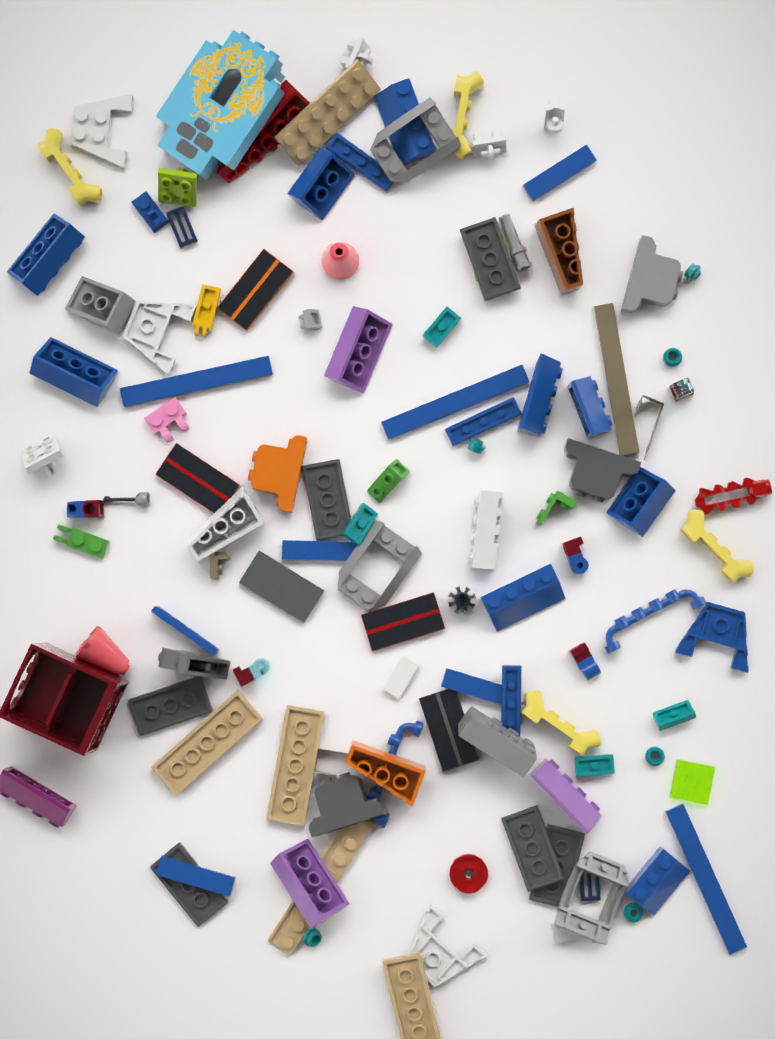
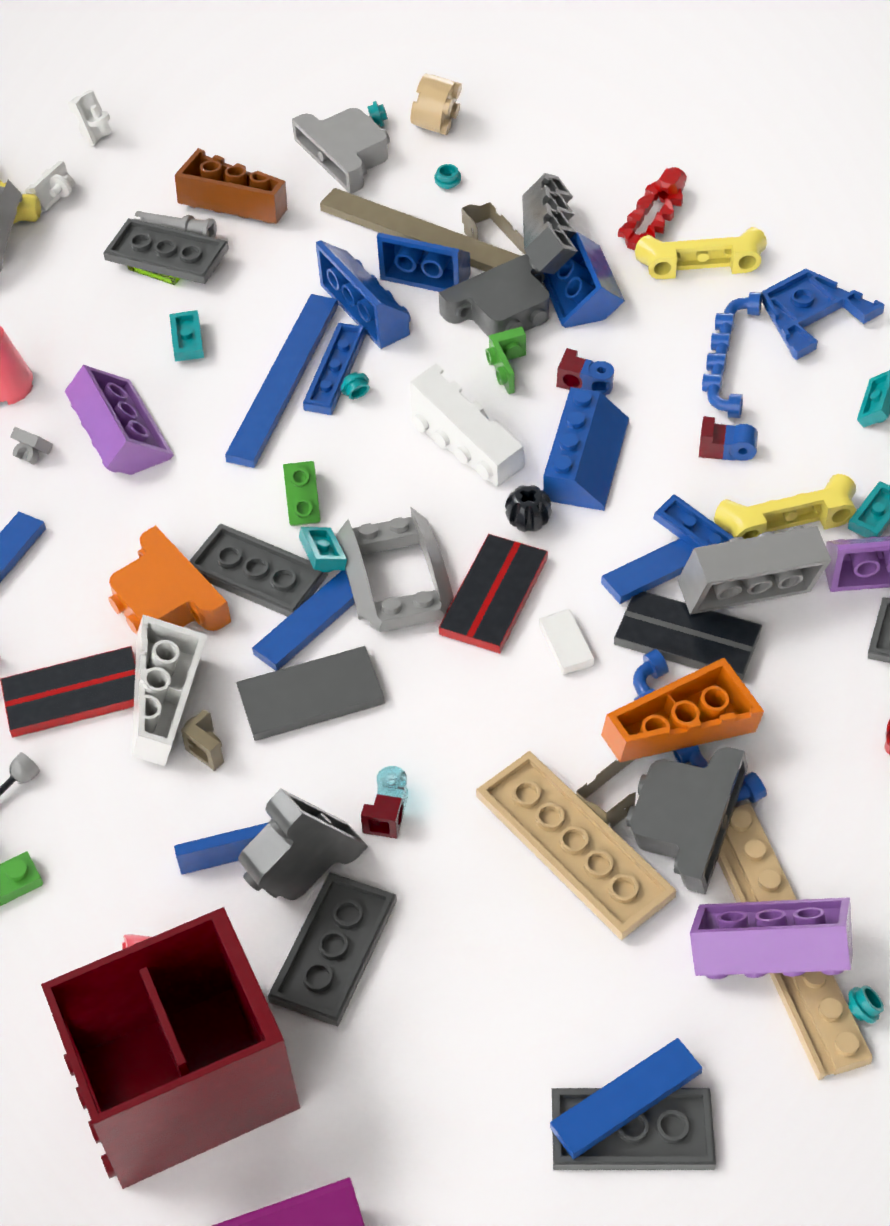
camera: 50 degrees left, 35 degrees down
(207, 742) = (434, 938): tan plate -> none
(559, 172) = (151, 156): blue tile -> none
(656, 458) = (547, 224): none -> dark grey brick
(682, 389) = (490, 176): clear light blue leg -> none
(721, 304) = (436, 103): none -> tan brick

